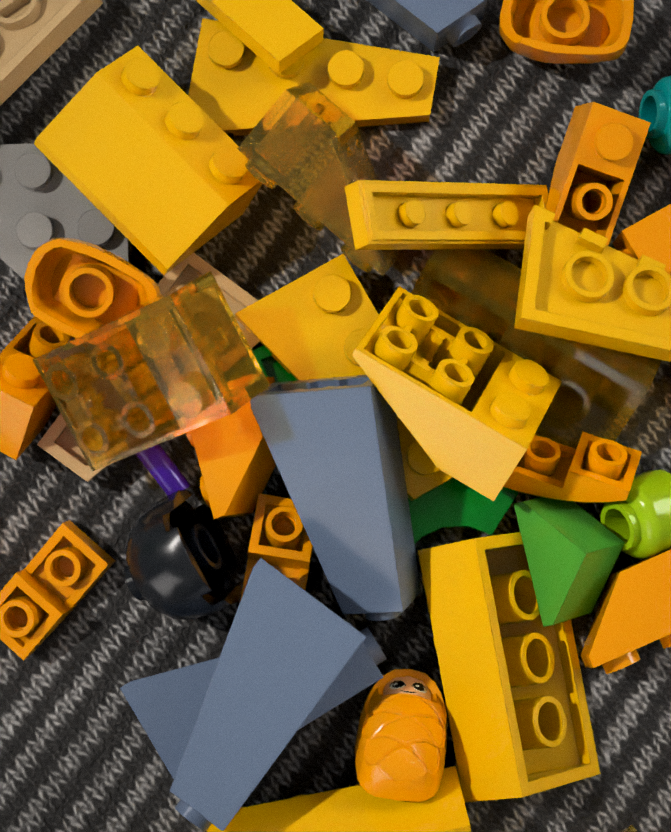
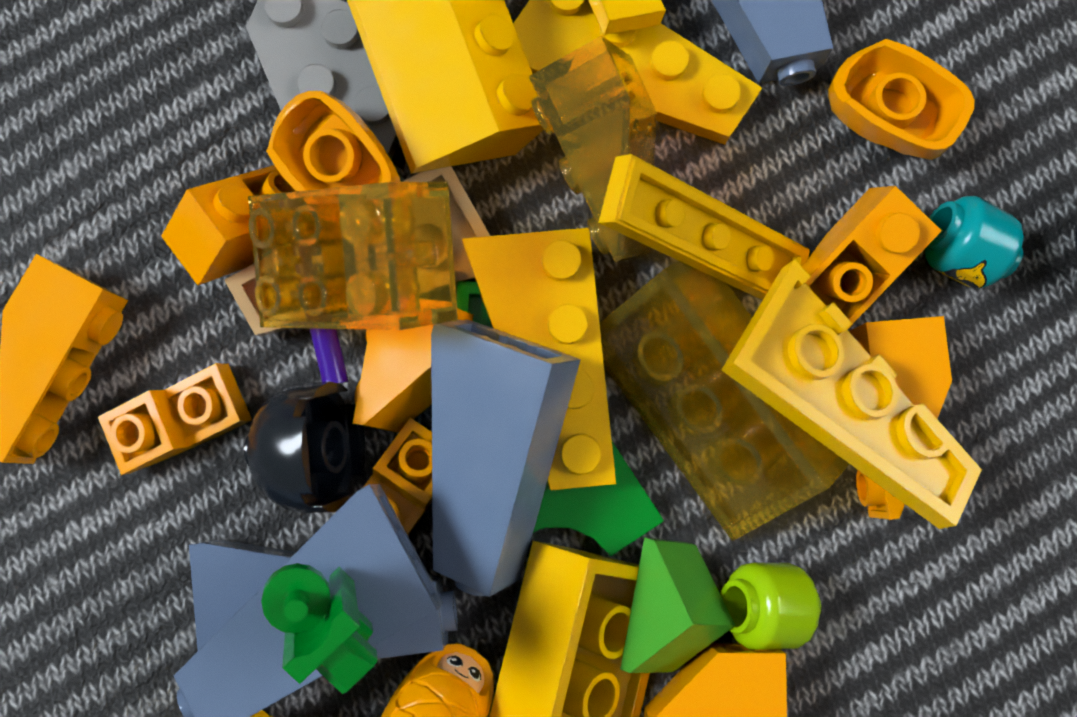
camera: 25 degrees right, 0 degrees up
(279, 679) = (319, 624): none -> green hips
(455, 390) = (636, 406): yellow slope -> none
(590, 473) = (729, 540): light orange slope -> none

